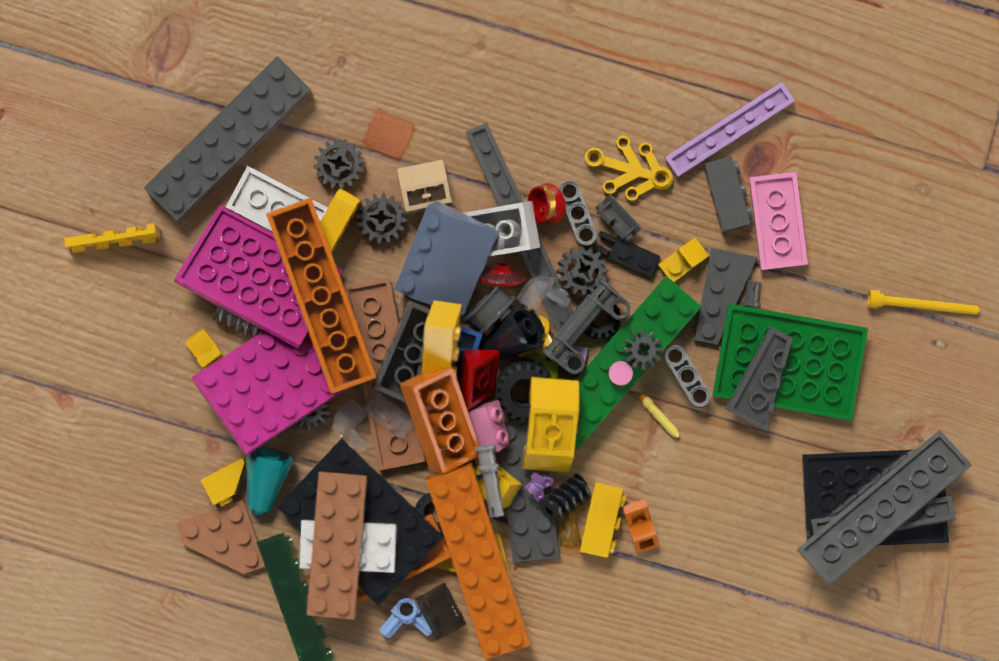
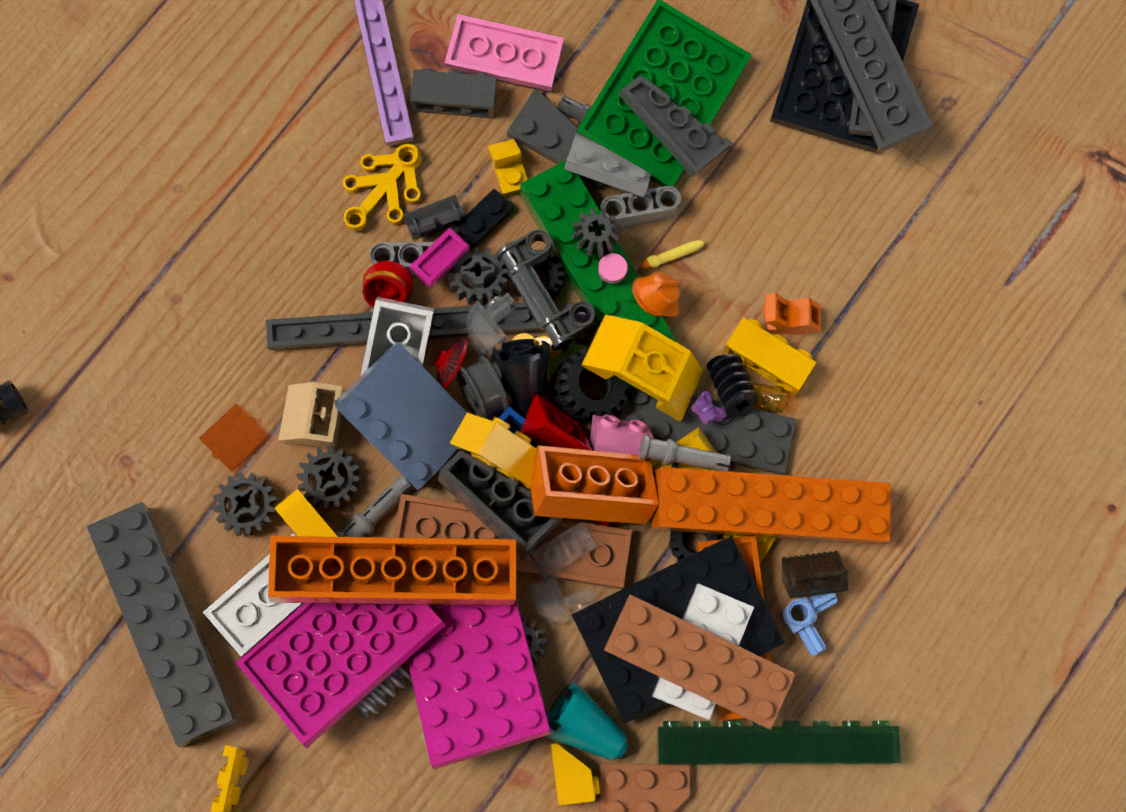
camera: 75 degrees left, 10 degrees down
(204, 348) = (401, 743): yellow brick -> none
(357, 258) = (364, 523): none -> light grey pin
(582, 236) = (439, 257): none -> dark pink tile
(614, 415) = (657, 294): none -> orange piece
(705, 337) = (605, 166): none -> light grey wing

